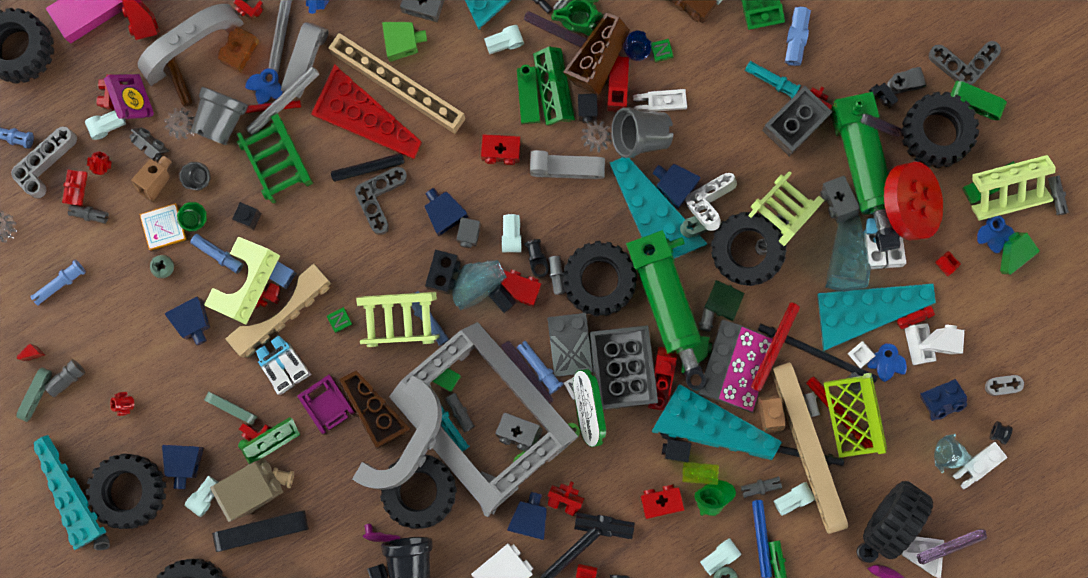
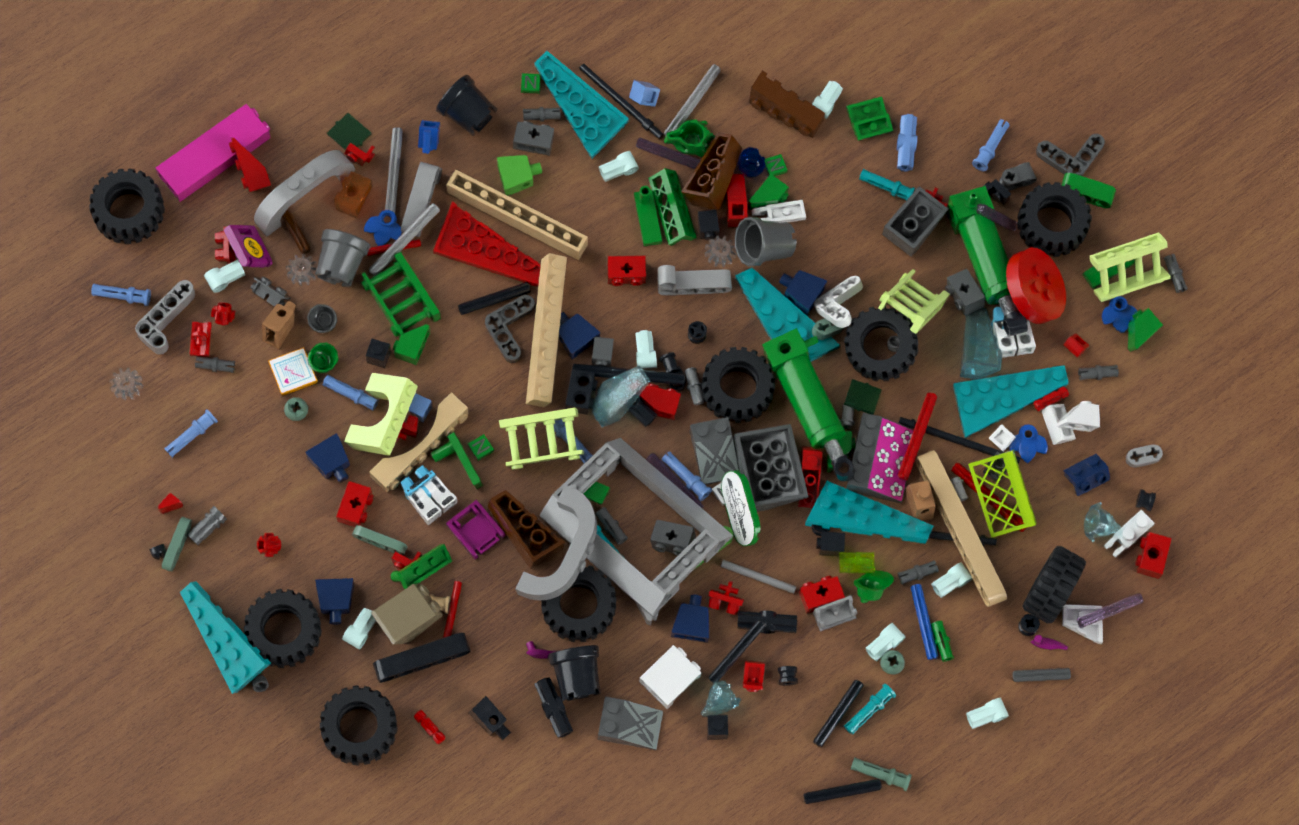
camera: 20 degrees left, 10 degrees down
(15, 399) = (158, 551): none -> black hinge
(209, 359) = (353, 494): none -> red brick
(281, 209) = (411, 344): none -> green slope
(295, 484) = (452, 609): none -> red bar
(315, 318) = (456, 446): none -> green piece
(414, 206) = (546, 330): none -> tan brick
(484, 256) = (654, 376): none -> black axle
(565, 215) = (697, 328): none -> black wheel
(601, 477) = (758, 576): none -> light grey bar
(653, 79) = (771, 192): none -> green slope
(673, 523) = (835, 613): none -> light grey hinge
(879, 52) = (988, 151): none -> medium blue pin
(967, 293) = (1098, 372): none -> dark grey pin
(1011, 484) = (1160, 546): none -> red brick

